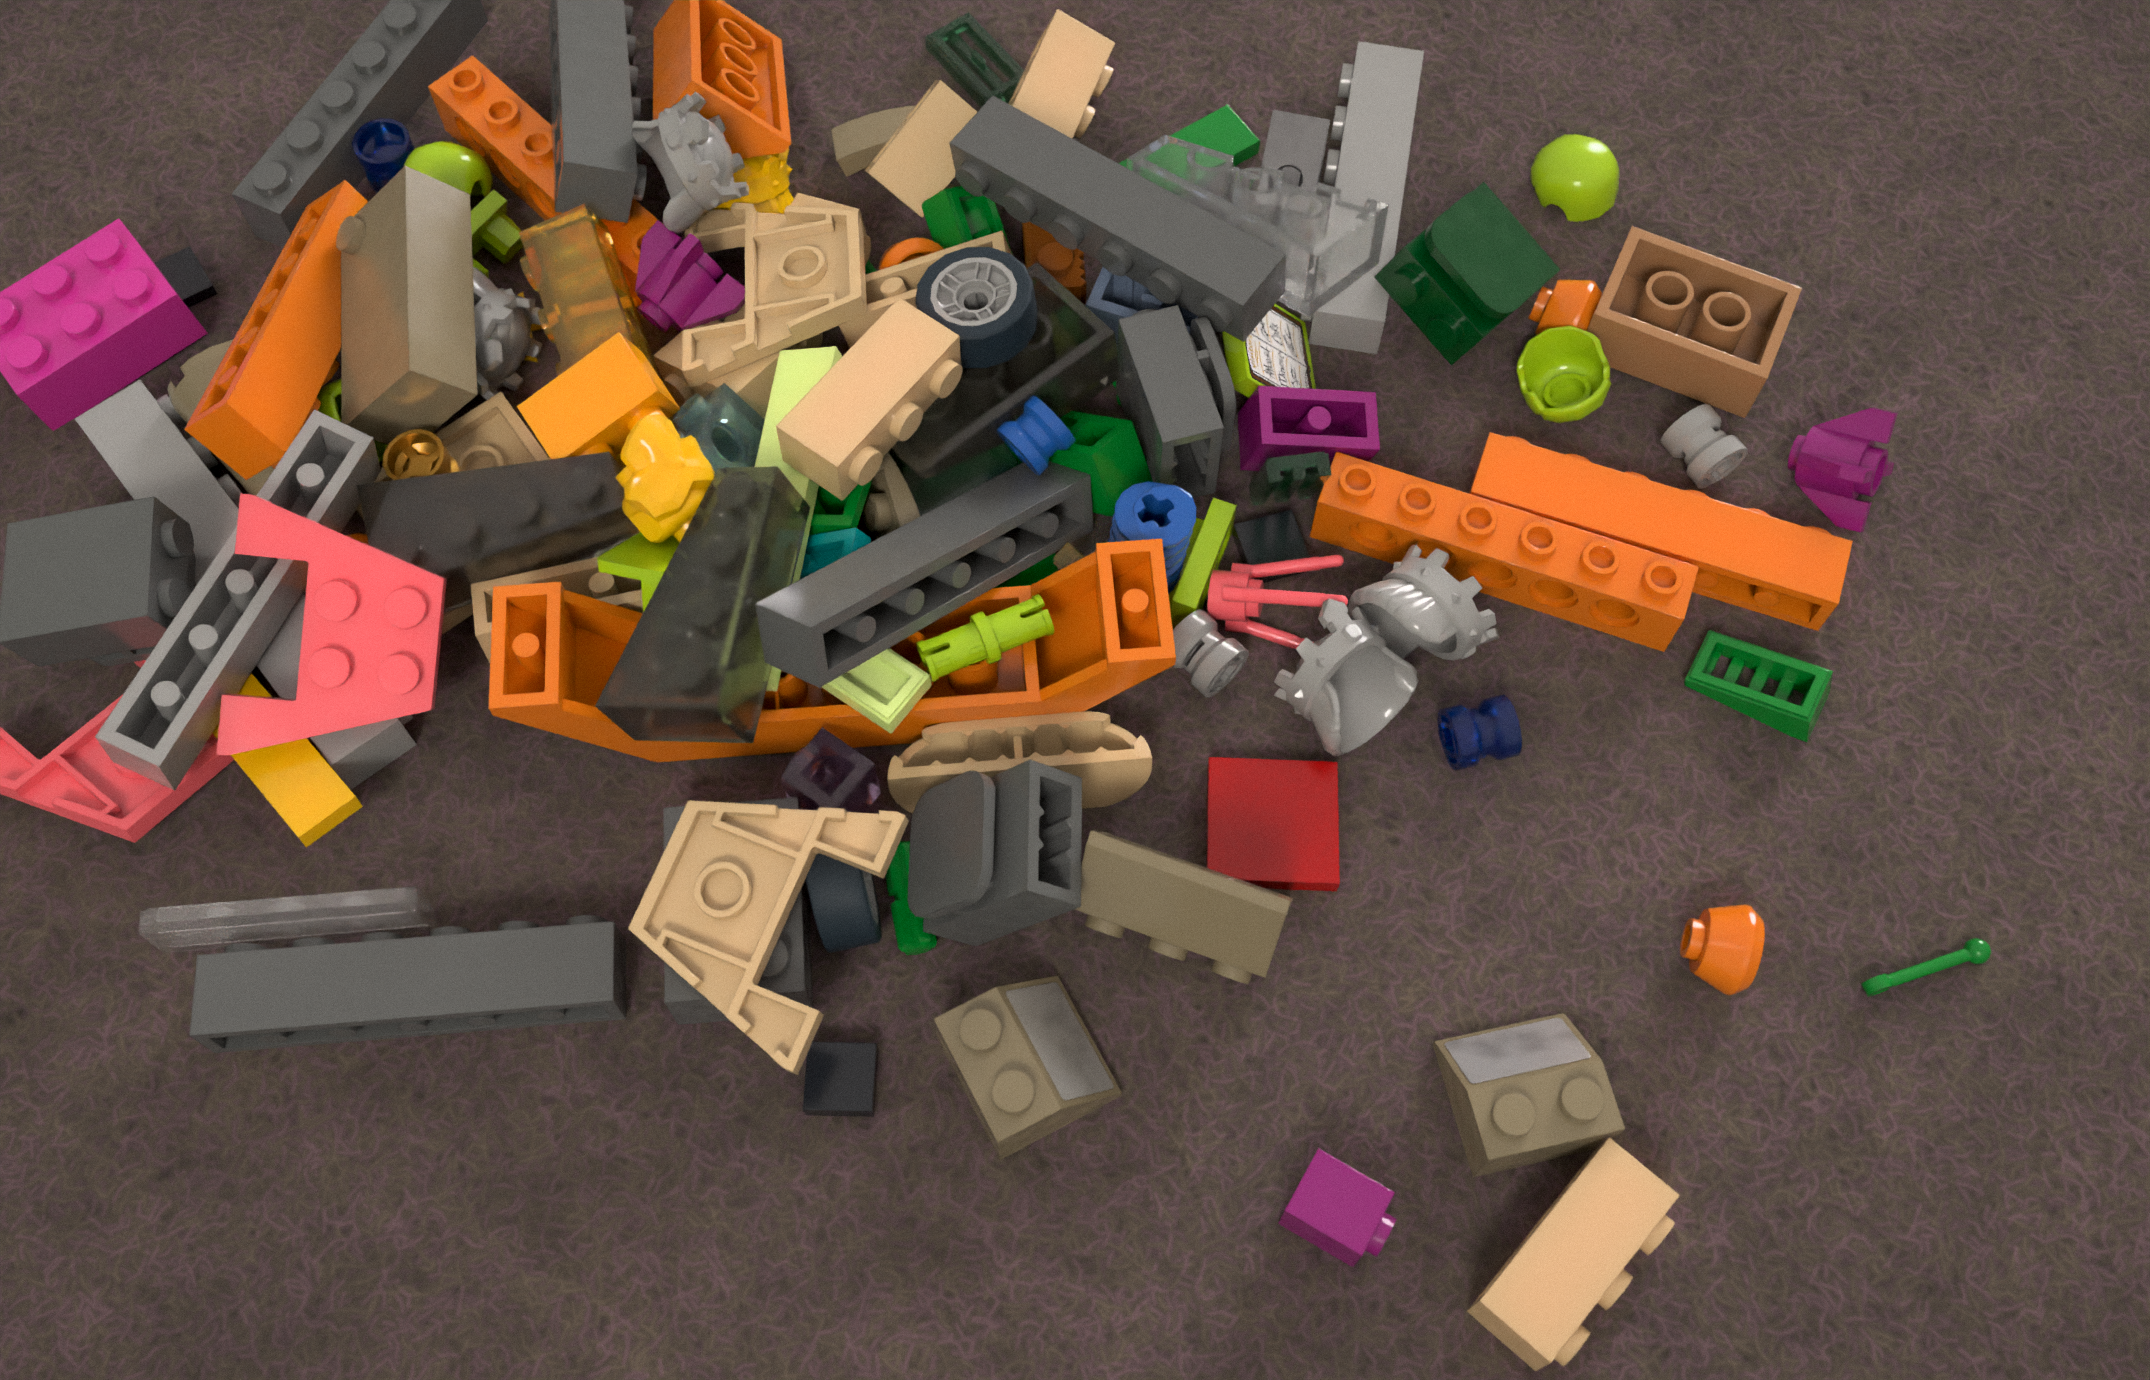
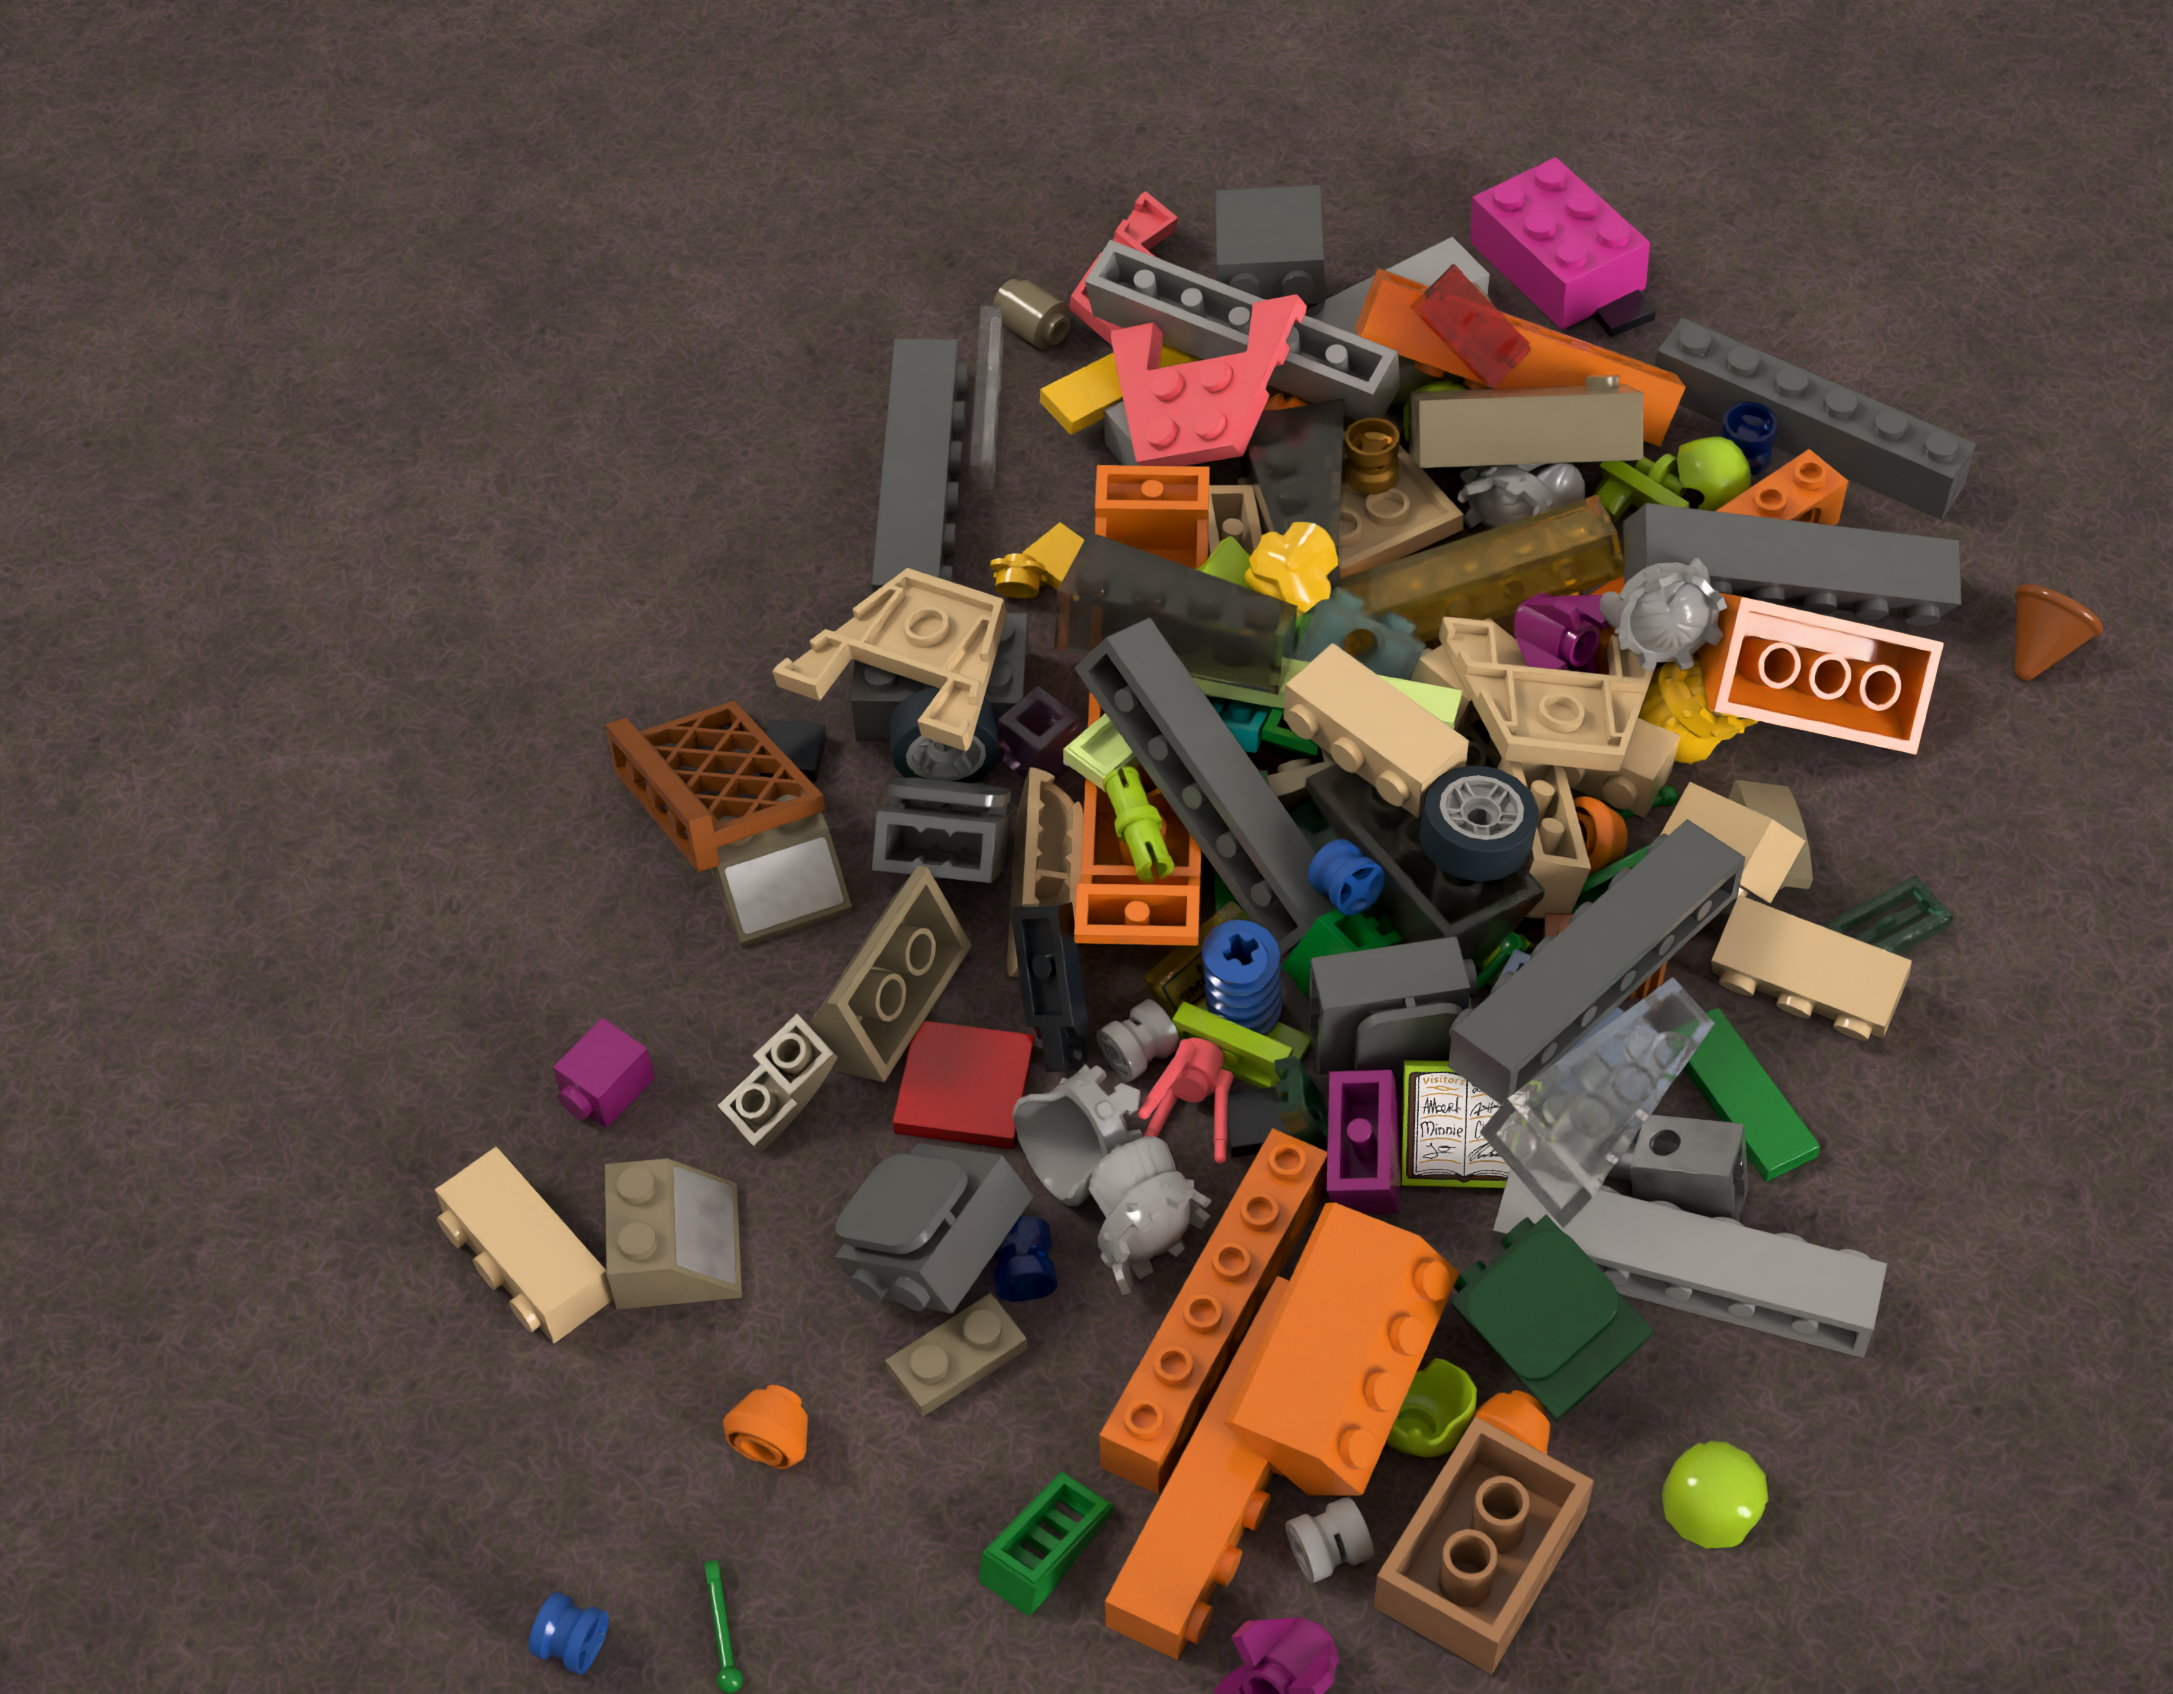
camera: 100 degrees right, 10 degrees down
(137, 881) = (1033, 313): none -> dark tan brick
(293, 331) = (1471, 327): none -> clear red hinge
(537, 813) = (1056, 552): none -> yellow tile
(575, 849) = (1018, 576): none -> yellow plate
(597, 401) = (1400, 553): light orange brick -> none
(967, 1186) = (674, 795): none -> dark orange fence
(1169, 720) = (1052, 982): none -> black hinge
(1324, 1002) = (782, 1085): none -> dark tan slope
(1486, 809) = (928, 1225): none -> dark grey brick
(1559, 413) = (1342, 1351): none -> orange slope
(1586, 789) = (956, 1354): none -> dark tan plate
(1996, 1107) = (568, 1633): none -> blue wheel

